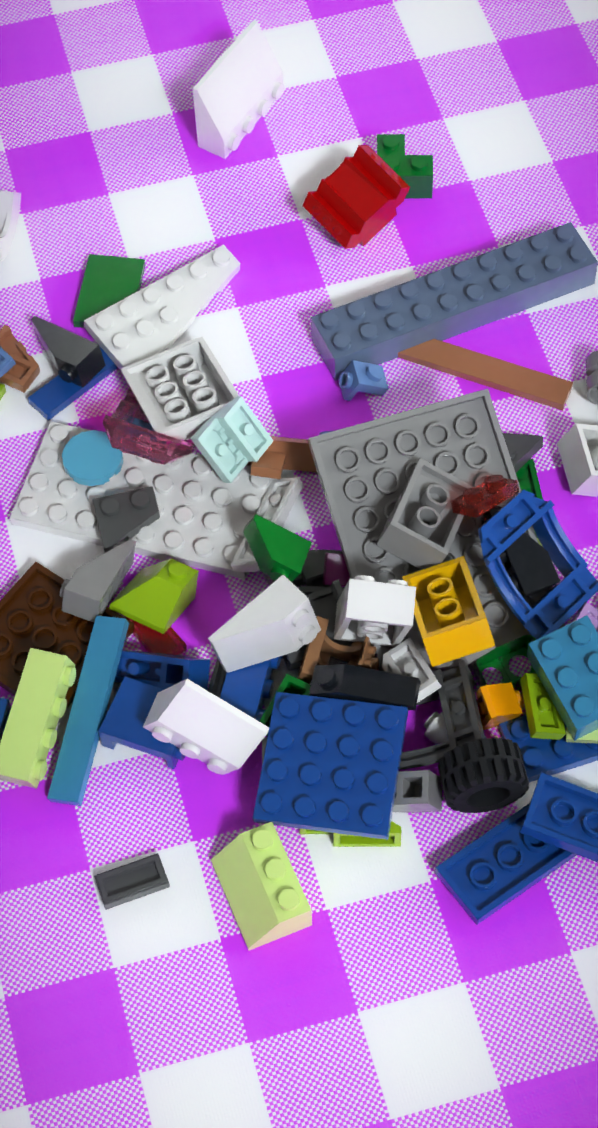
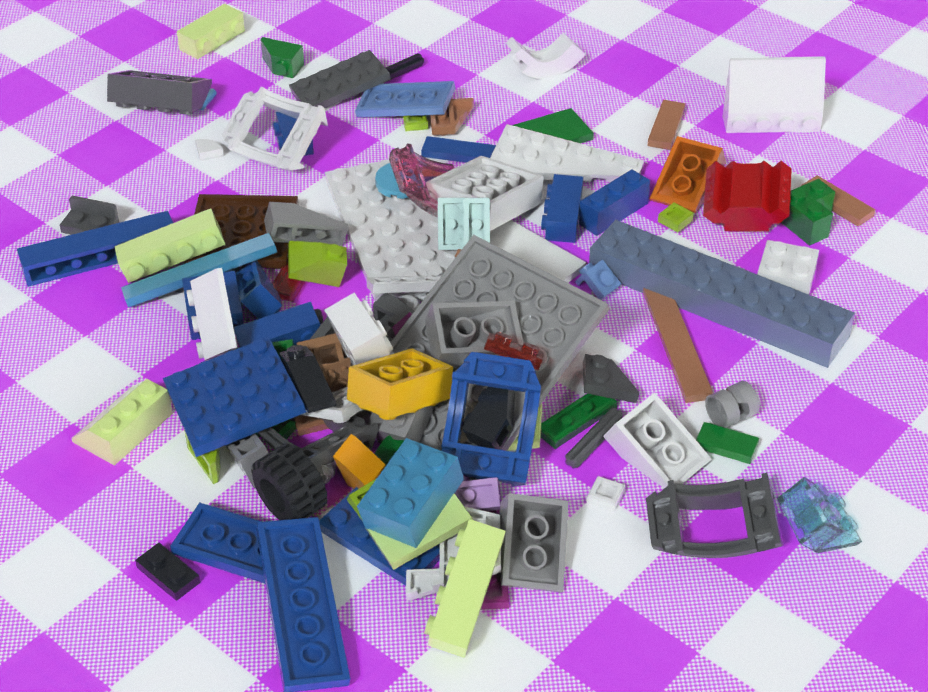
camera: 55 degrees right, 15 degrees down
(71, 354) = (471, 131): black slope -> none
(125, 515) = (367, 214): dark grey wing -> none
(131, 881) = (87, 357): dark grey tile -> none
(178, 195) = (666, 124): none -> nougat tile
(243, 347) = (562, 208): none -> blue brick
(266, 628) = (304, 294): white slope -> none
(269, 303) = (614, 202): none -> blue brick
(276, 548) = (387, 286): green slope -> none
(277, 225) = (685, 173): none -> orange slope
(299, 408) = (536, 251): none -> white tile
(324, 270) = (675, 217): none -> lime plate
(417, 137) = (848, 205): none -> nougat tile
(467, 232) = (789, 265): none -> white brick
(497, 939) = (167, 571): none -> black plate
(564, 502) = (592, 438): none -> dark grey axle

